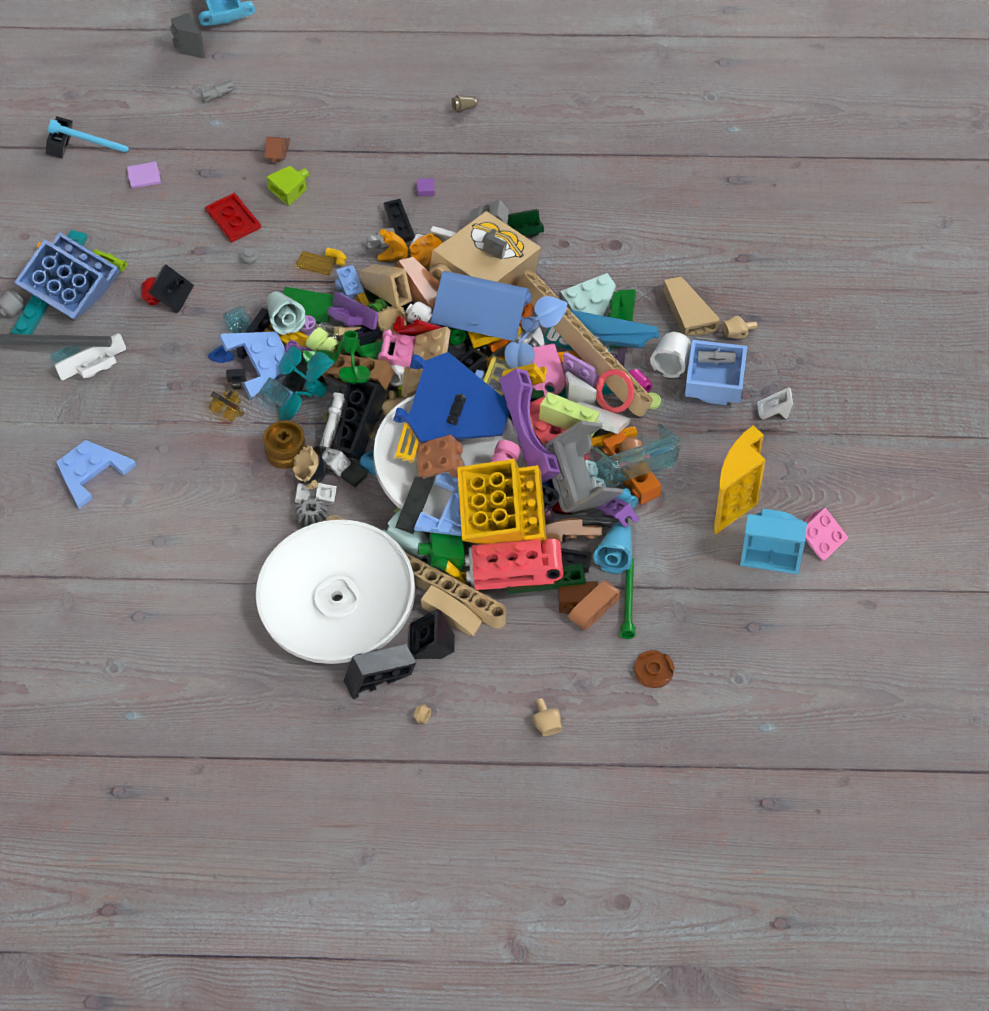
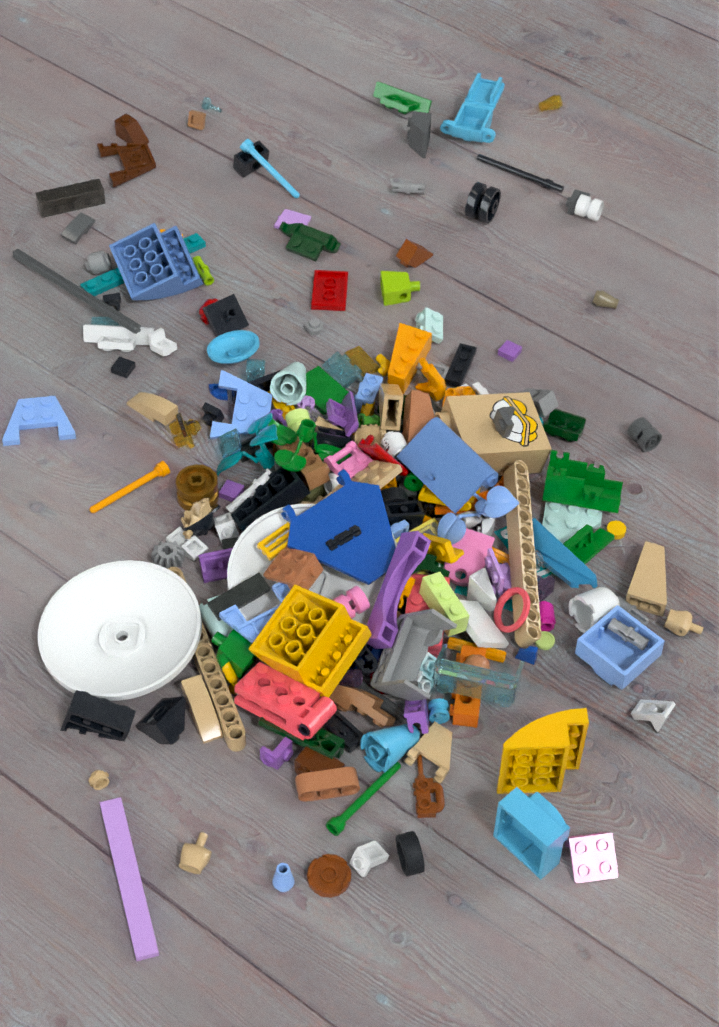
camera: 35 degrees right, 5 degrees down
(57, 329) = (112, 299): none -> black tile
(119, 382) = (123, 367): none -> black tile
(136, 344) = (160, 344): none -> white bracket
(138, 14) = (401, 99): none -> bracket
(177, 184) = (308, 241): none -> dark green plate
(181, 400) = (154, 407): none -> tan slope
(203, 310) = (233, 347): none -> medium azure dish
(237, 448) = (160, 470): none -> light orange piece
(297, 71) = (482, 202): none -> black wheel
(308, 279) = (341, 369): none -> clear light blue bracket
(311, 430) = (231, 490): none -> medium lavender tile
(330, 26) = (547, 183): none -> black bar
(344, 202) = (431, 322): none -> light aqua bracket
(350, 235) = (409, 347): none -> light orange wedge
(359, 494) = (214, 565): none -> medium lavender hinge
(368, 26) = (572, 201): none -> dark grey bracket
(384, 29) = (589, 207): none -> white wheel
(513, 768) = (129, 879): none -> lavender tile
(538, 613) = (276, 758): none -> medium lavender bracket
(578, 265) = (576, 485): none -> green piece
(584, 194) = (644, 434): none -> dark grey wheel
(626, 692) = (283, 878): none -> light blue cone
(630, 283) = (617, 528): none -> yellow tile
(649, 529) = (434, 747): none -> tan flag
(651, 419) = (528, 654): none -> blue tile
(665, 566) = (423, 788): none -> dark orange piece
(671, 638) = (368, 857): none -> white bracket
(701, 613) = (410, 853): none -> black tyre

